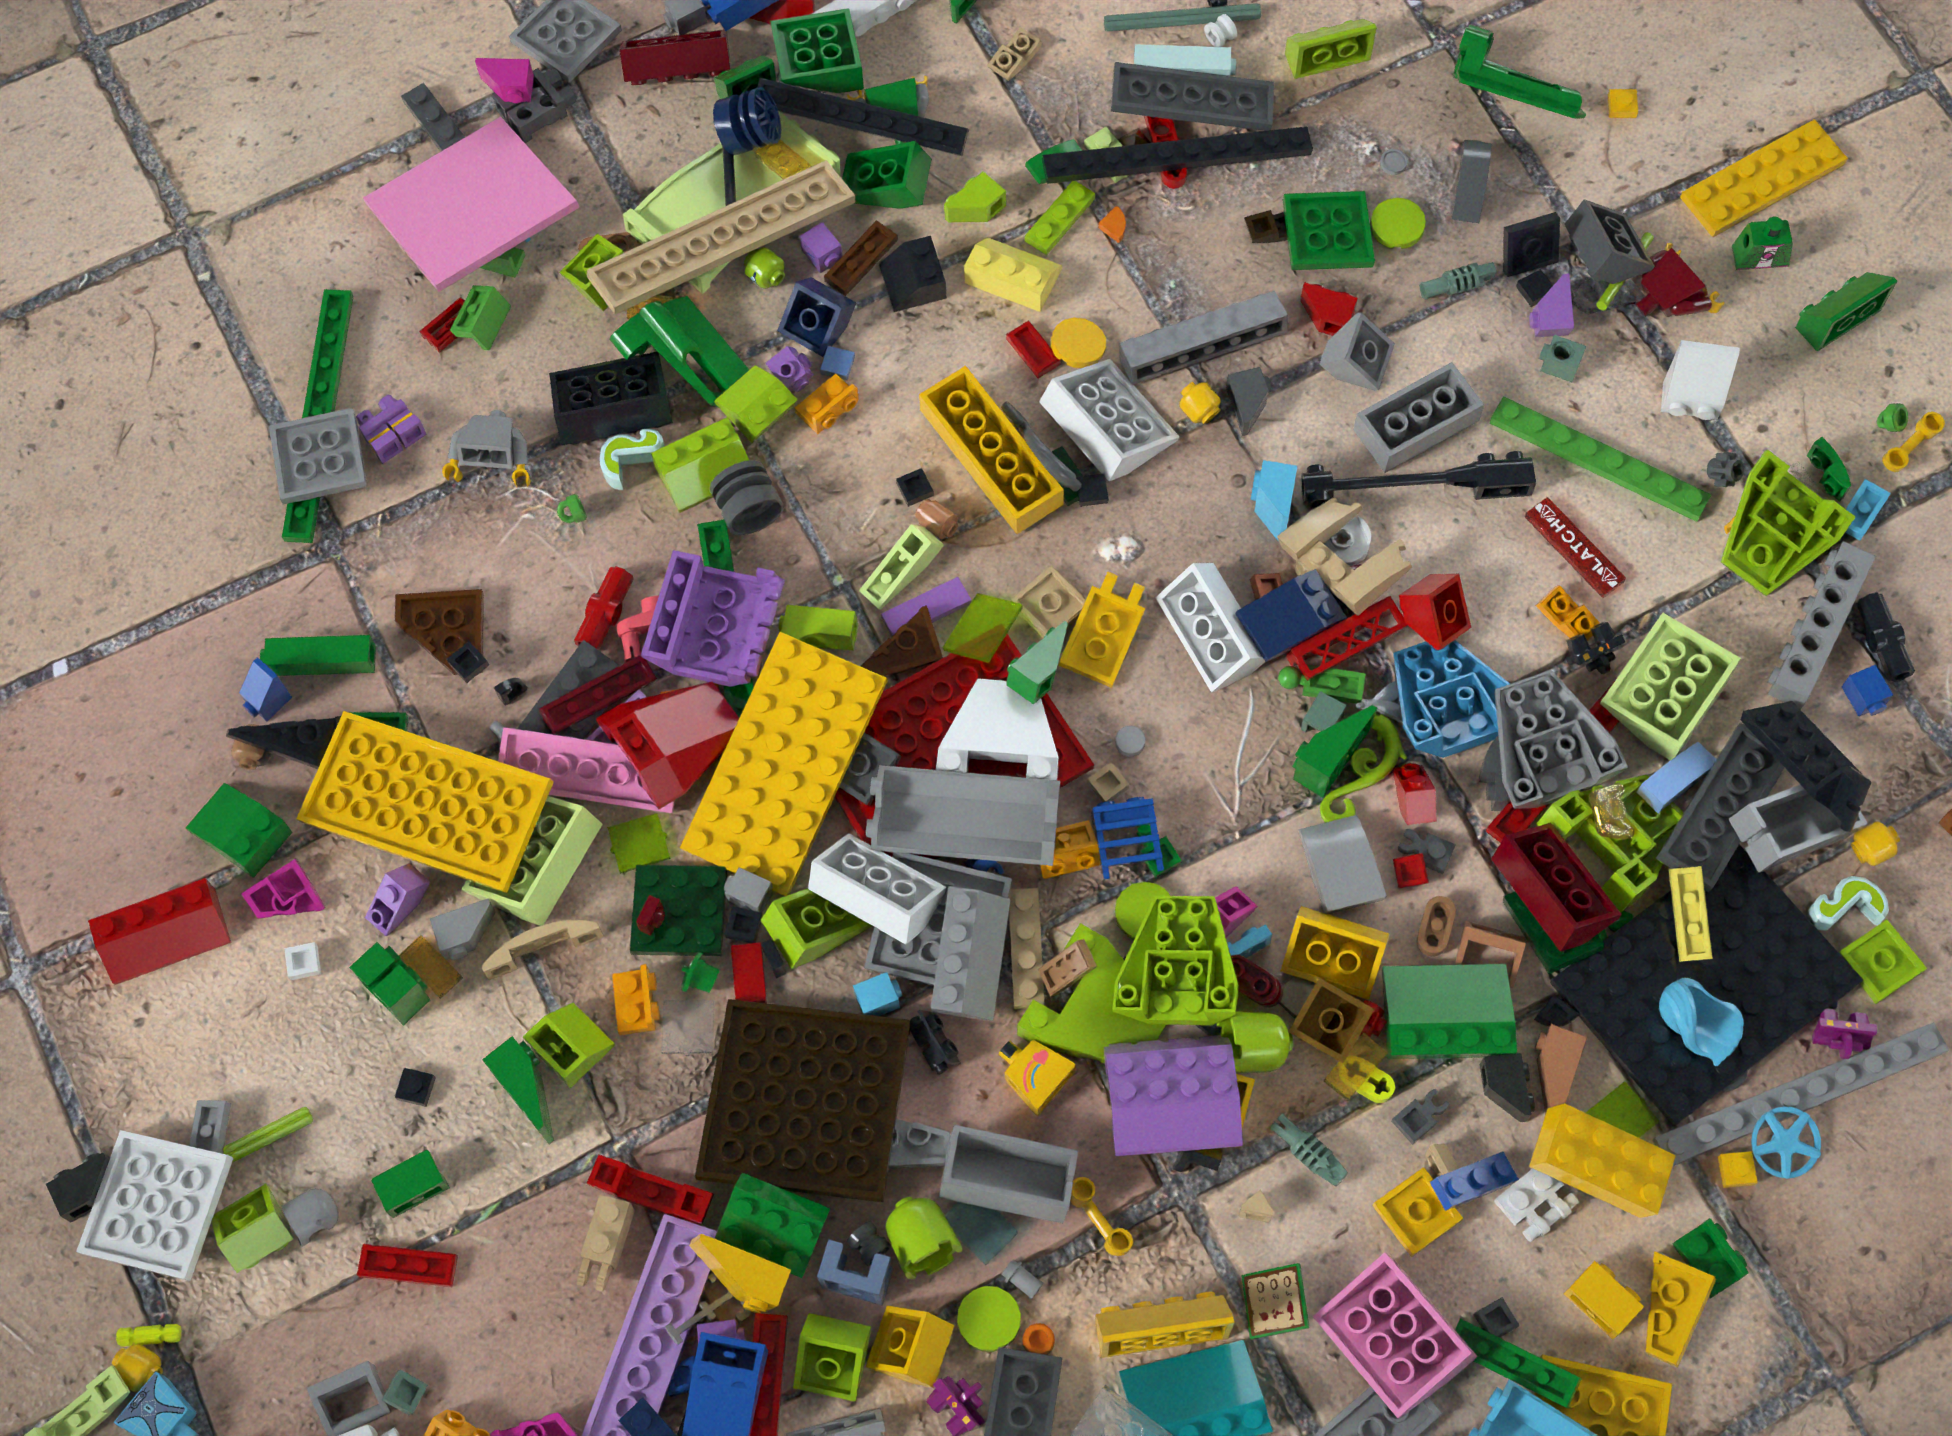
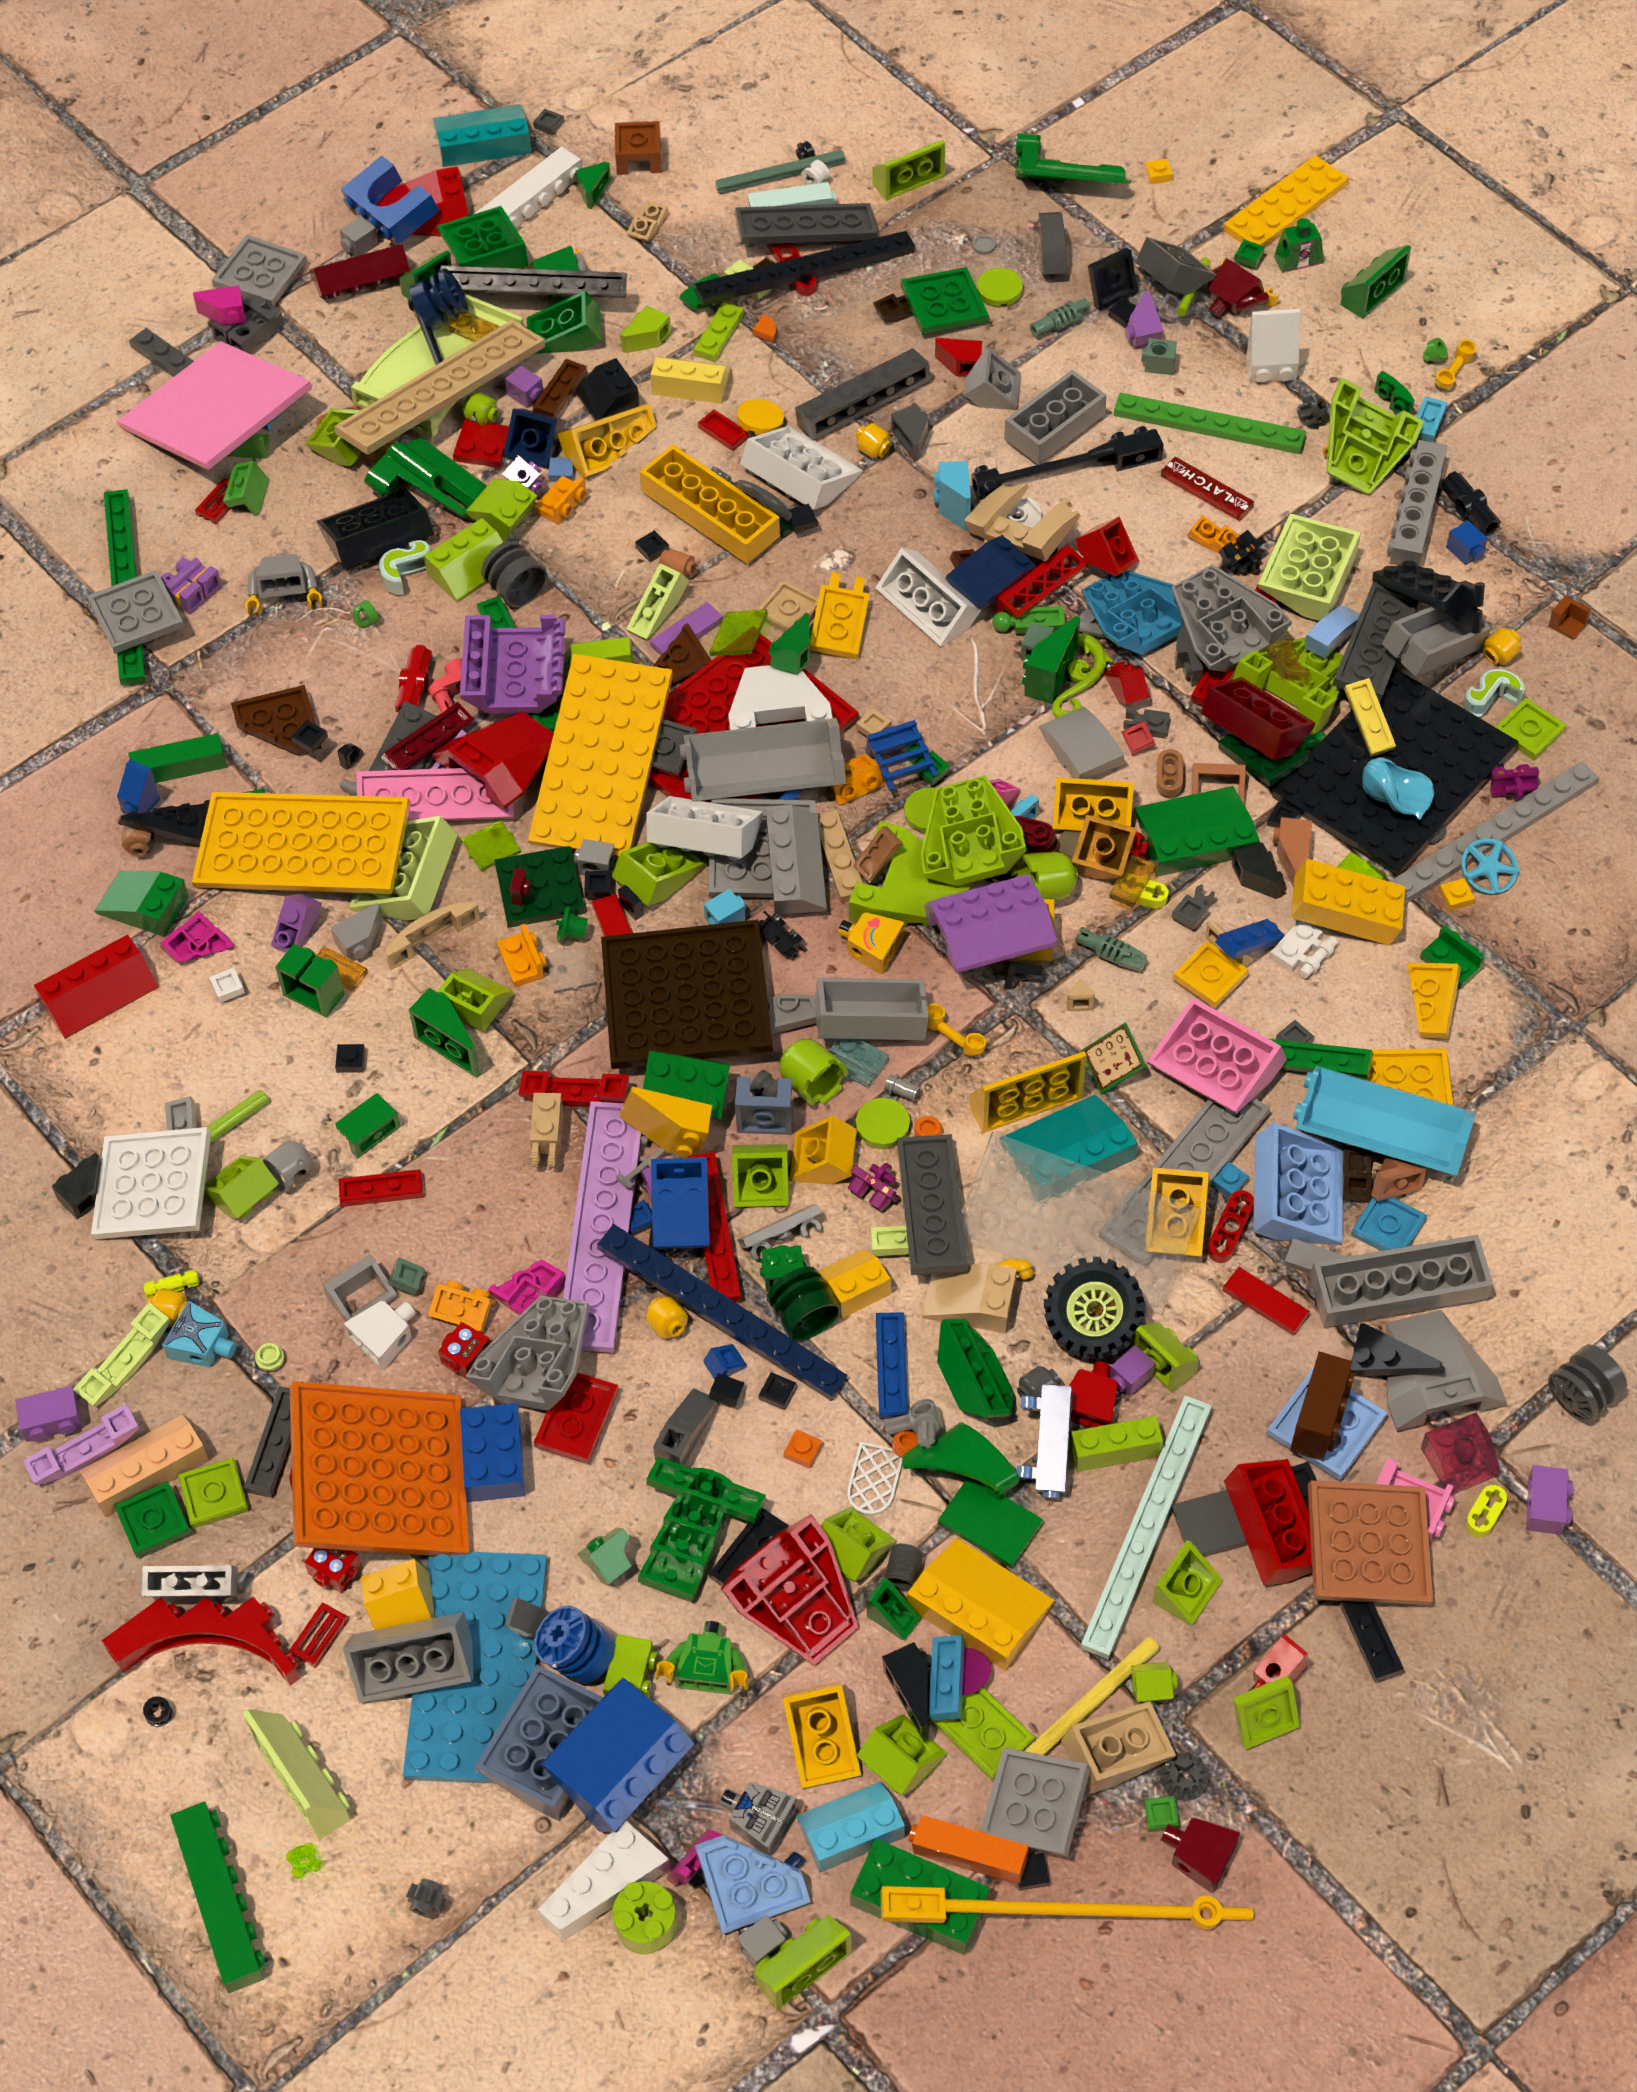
camera: 15 degrees left, 10 degrees down
(755, 311) = (481, 444): none -> red plate
(890, 337) = (601, 442): none -> yellow wedge
(1130, 741) = (883, 692): light grey tile -> none
(1604, 1299) = (1376, 1003): yellow brick -> none
(1703, 238) = (1249, 253): none -> green plate

